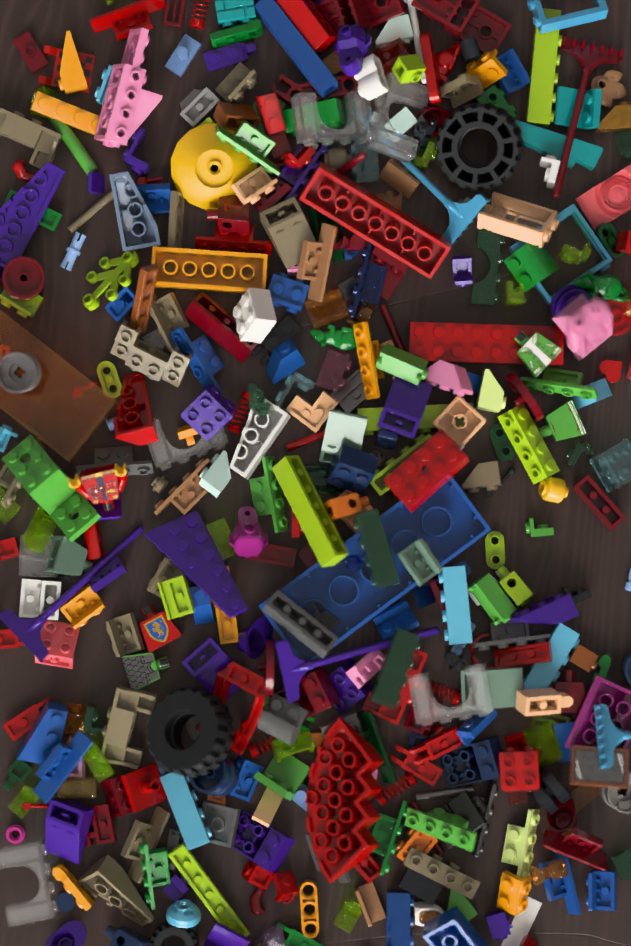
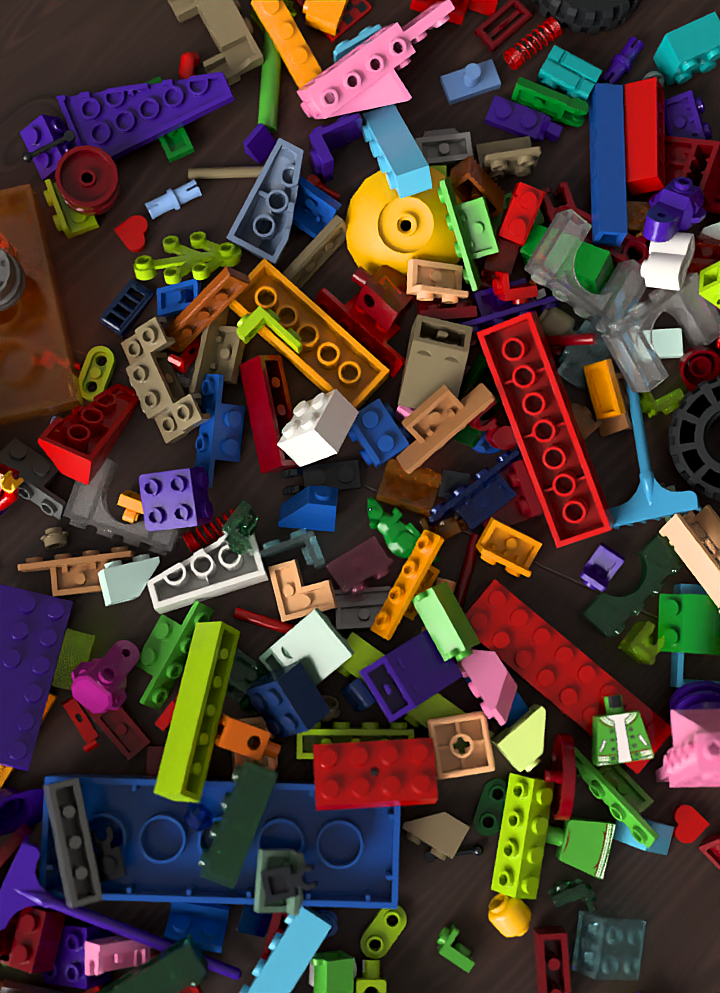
camera: 30 degrees right, 5 degrees down
(66, 287) = (133, 233): none -> red tile
(100, 346) = (112, 310): none -> dark blue slope
(152, 333) = (184, 362): none -> red piece
(175, 288) = (251, 324): none -> lime bracket
(177, 131) = (396, 151): none -> medium azure brick
(255, 570) = (84, 727): none -> red piece
(389, 173) = (604, 389): none -> light orange tile
(404, 299) = (508, 546): none -> light orange bracket
(422, 132) = (683, 367): black hinge -> none
(422, 558) = (283, 883): none -> black plate

